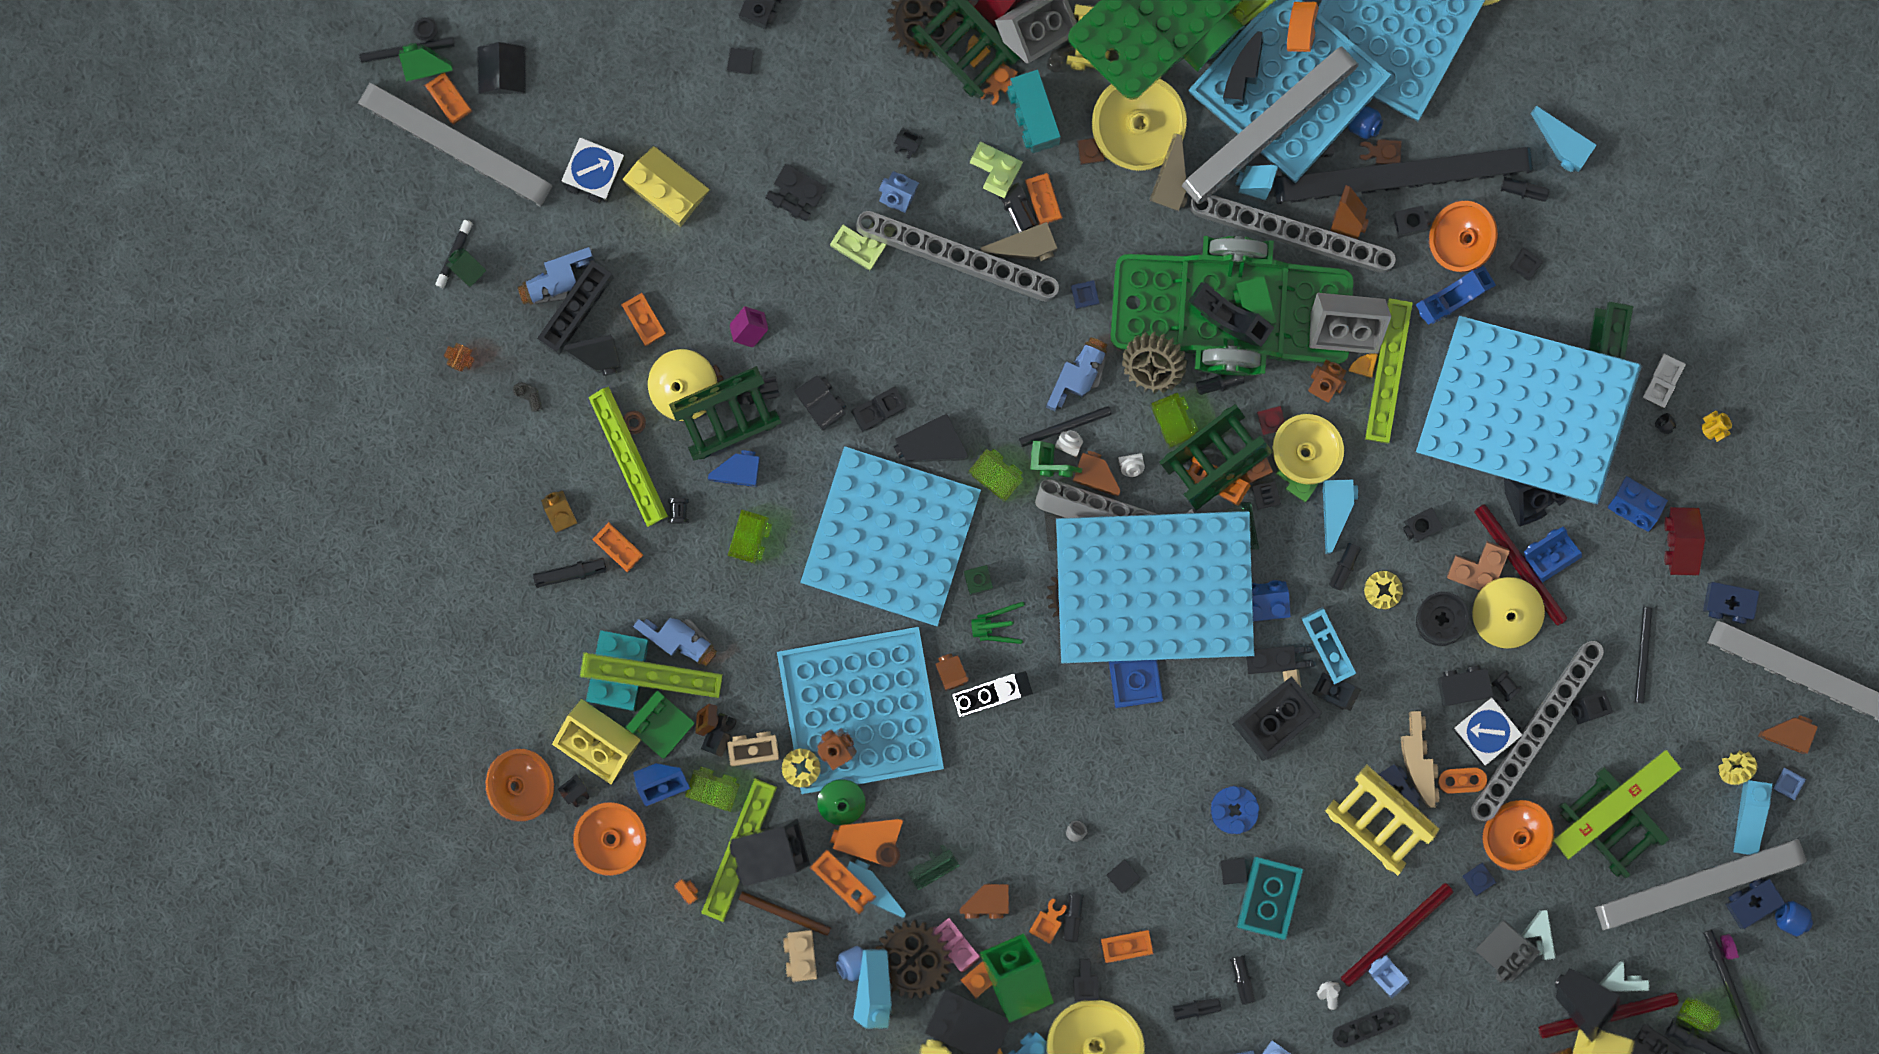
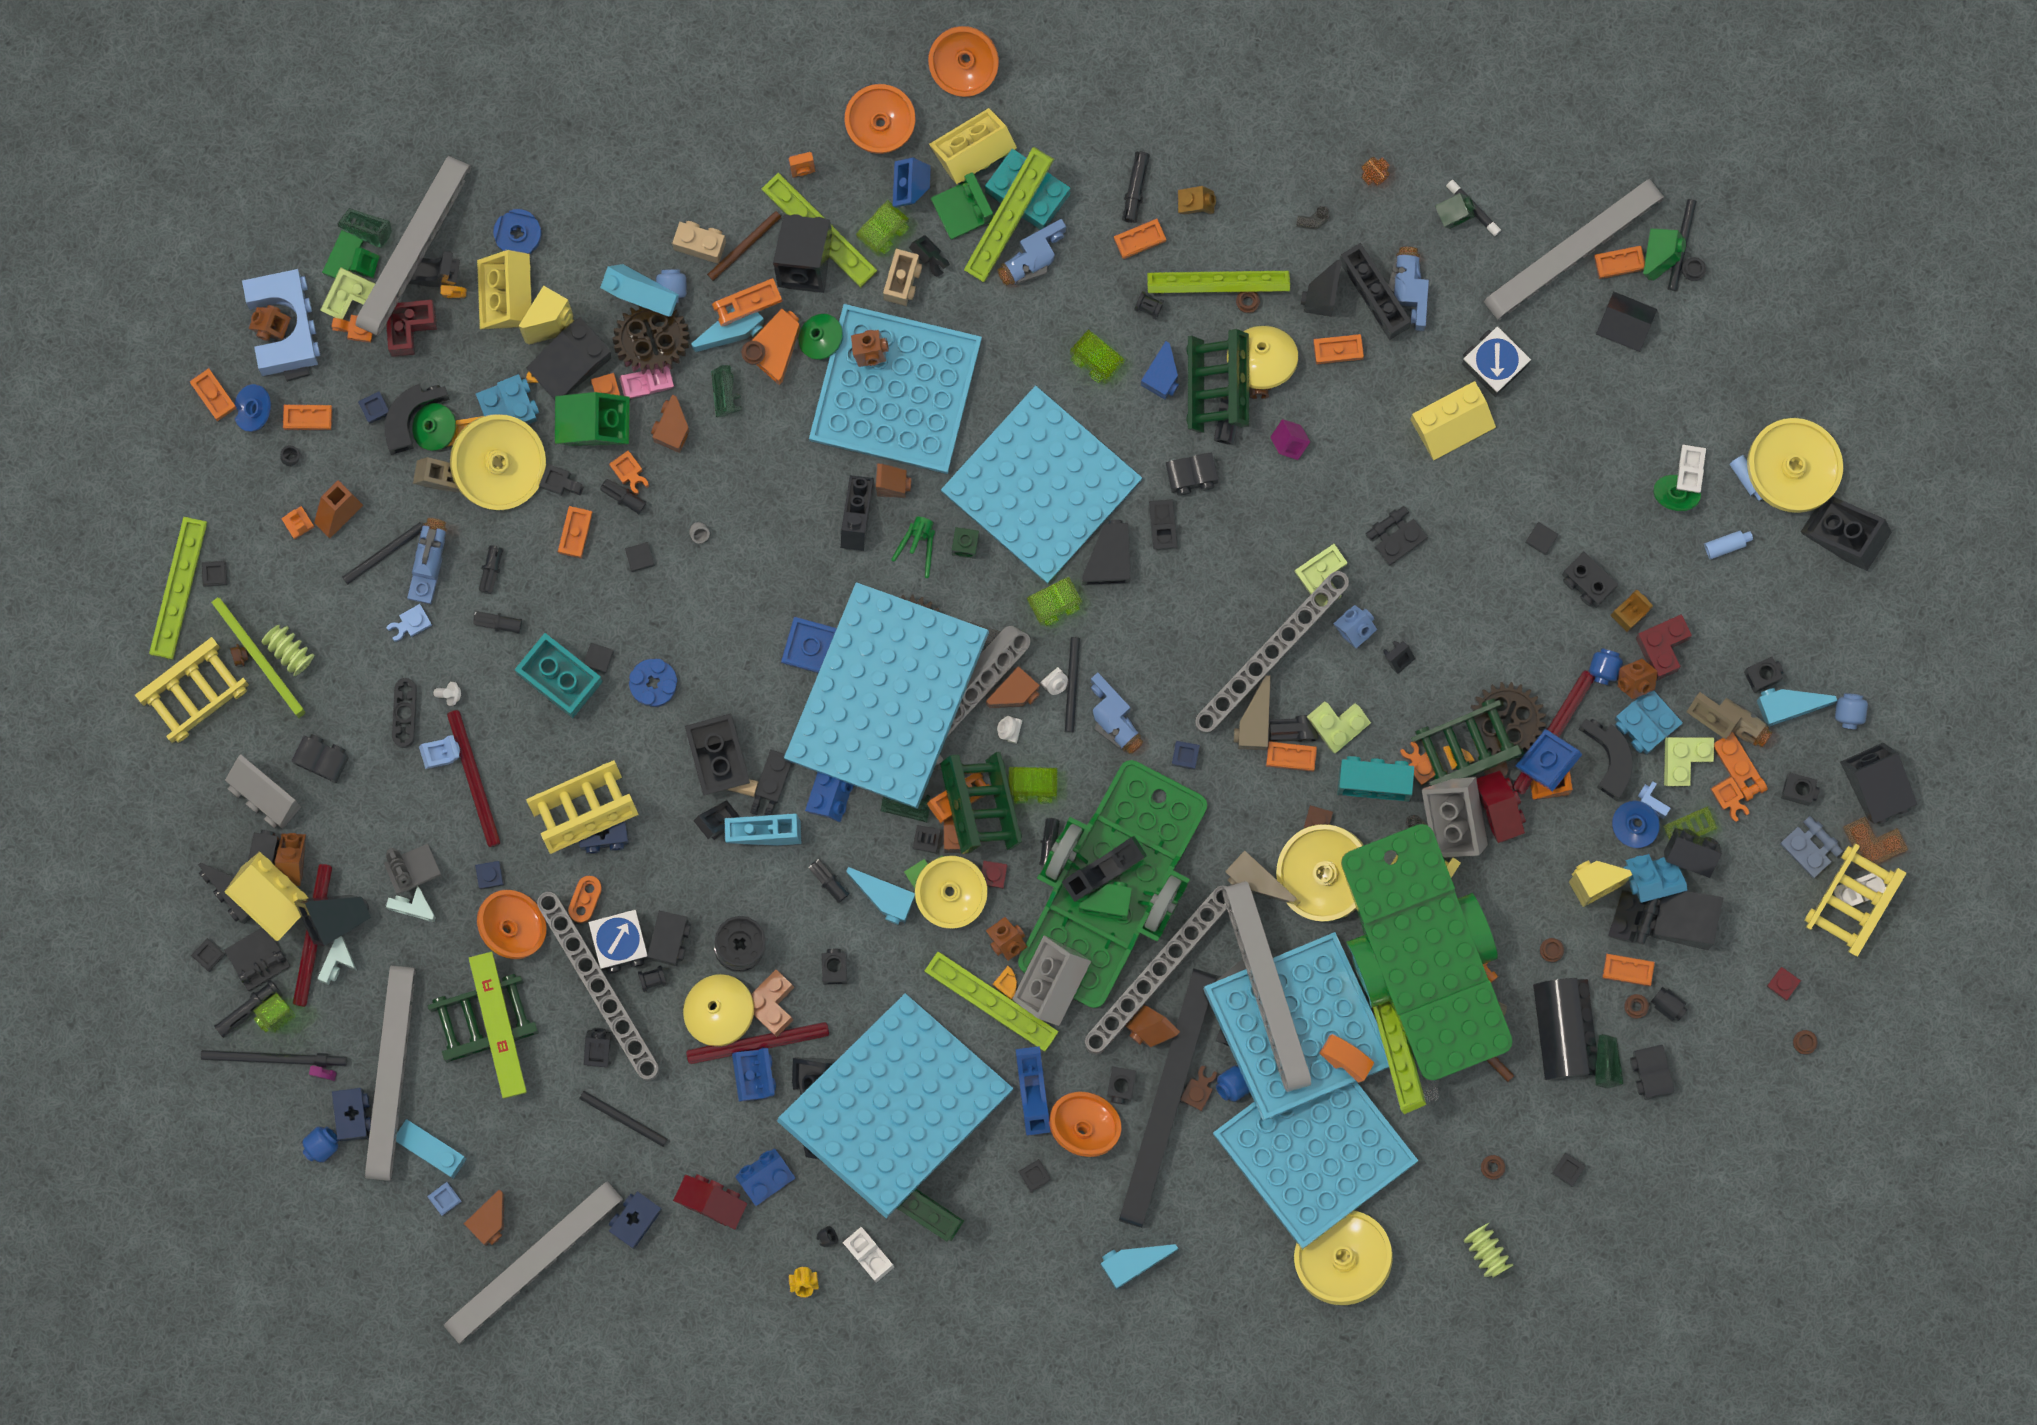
camera: 115 degrees right, 5 degrees down
(573, 789) = (939, 107): black tile -> none
(706, 719) = (948, 249): reddish brown plate -> none
(803, 779) = (864, 322): light yellow gear -> none
(1042, 461) = (1048, 649): green bracket -> none
(1162, 357) = (1093, 786): dark tan gear -> none
(1244, 71) = (1329, 987): black slope -> none
(1256, 180) = (1220, 955): medium azure slope -> none
(1385, 601) = (787, 917): light yellow gear -> none
(1420, 770) = (611, 864): tan slope -> none
(1525, 189) = (1105, 1205): black axle -> none
(1738, 775) = (481, 1165): light yellow gear -> none

